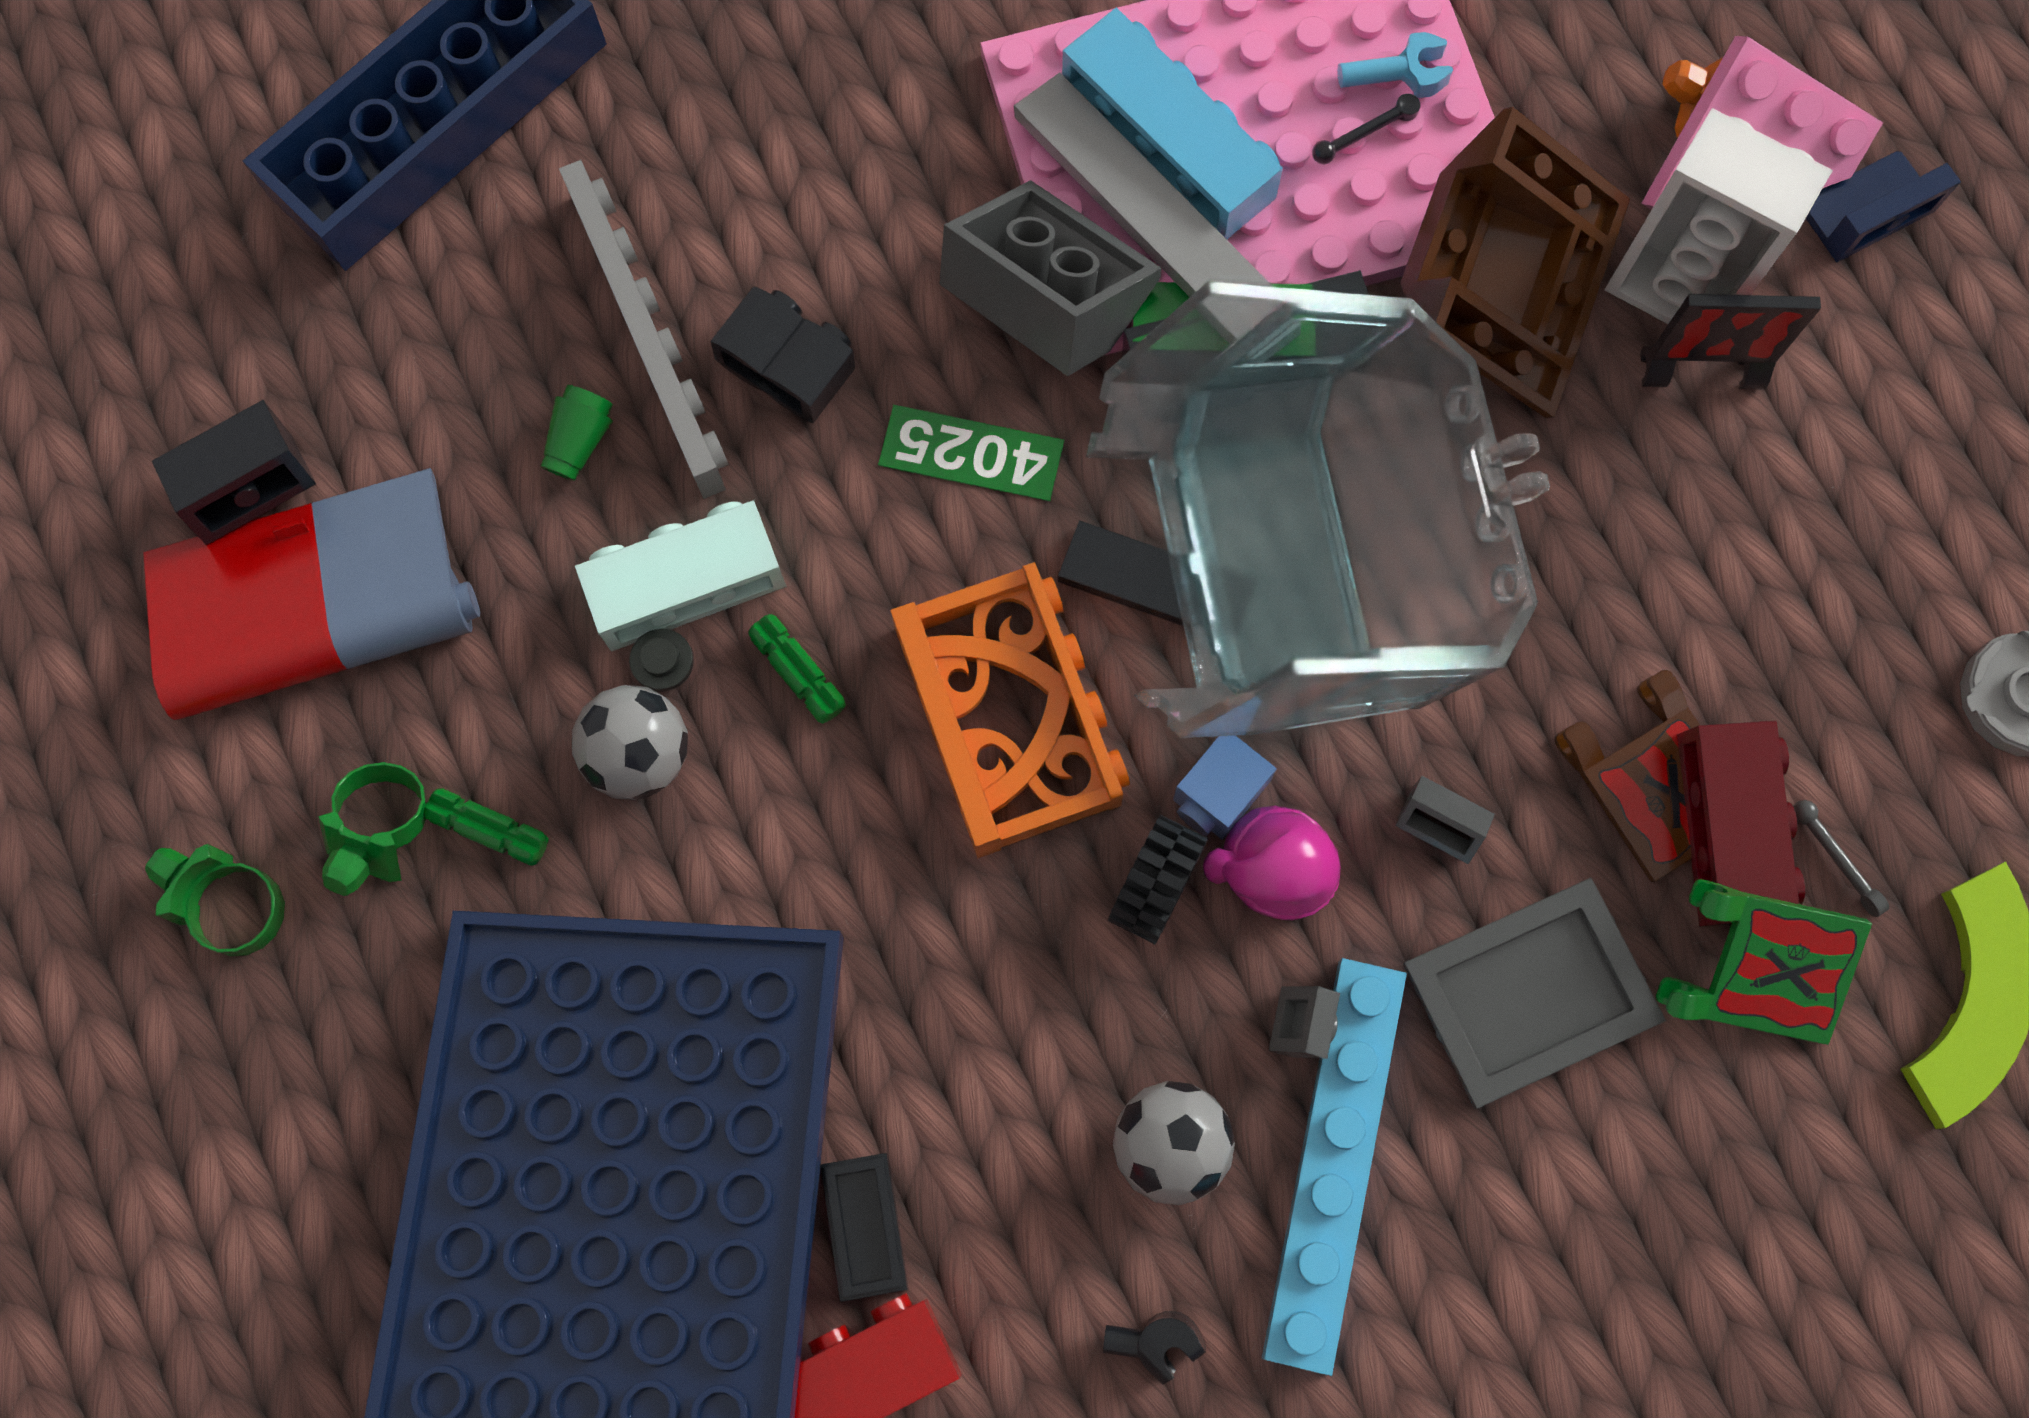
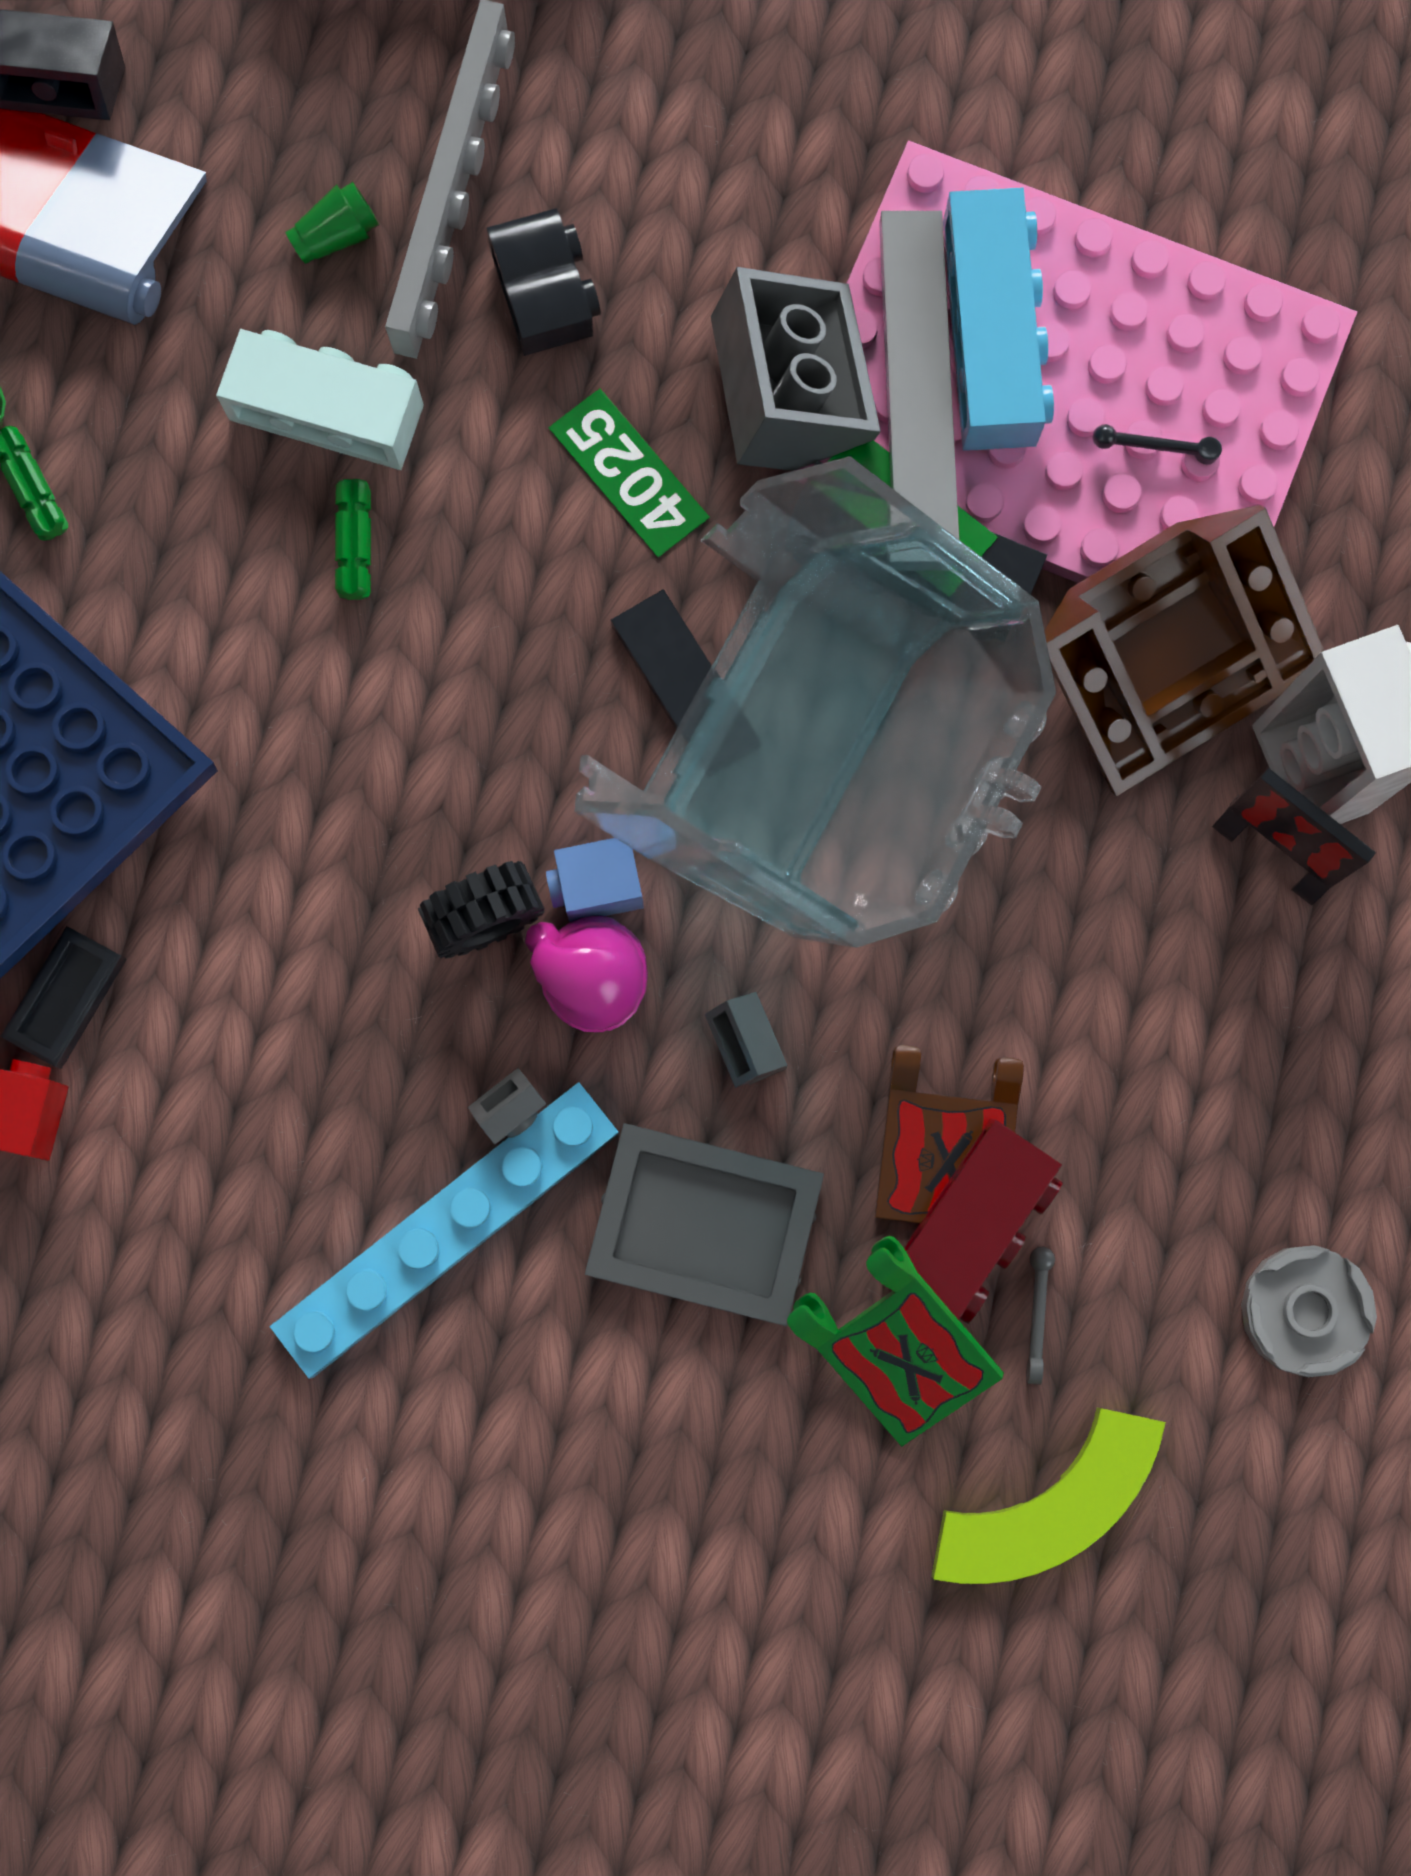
camera: 35 degrees right, 5 degrees up
(629, 742) = (174, 497): light grey piece -> none
(661, 660) = (256, 454): pearl dark grey plate -> none
(987, 791) = (458, 611): orange fence -> none
(1150, 1344) = (204, 1250): black piece -> none
(1173, 1143) = (328, 1114): light grey piece -> none
(1405, 67) = (1231, 414): medium azure bar -> none

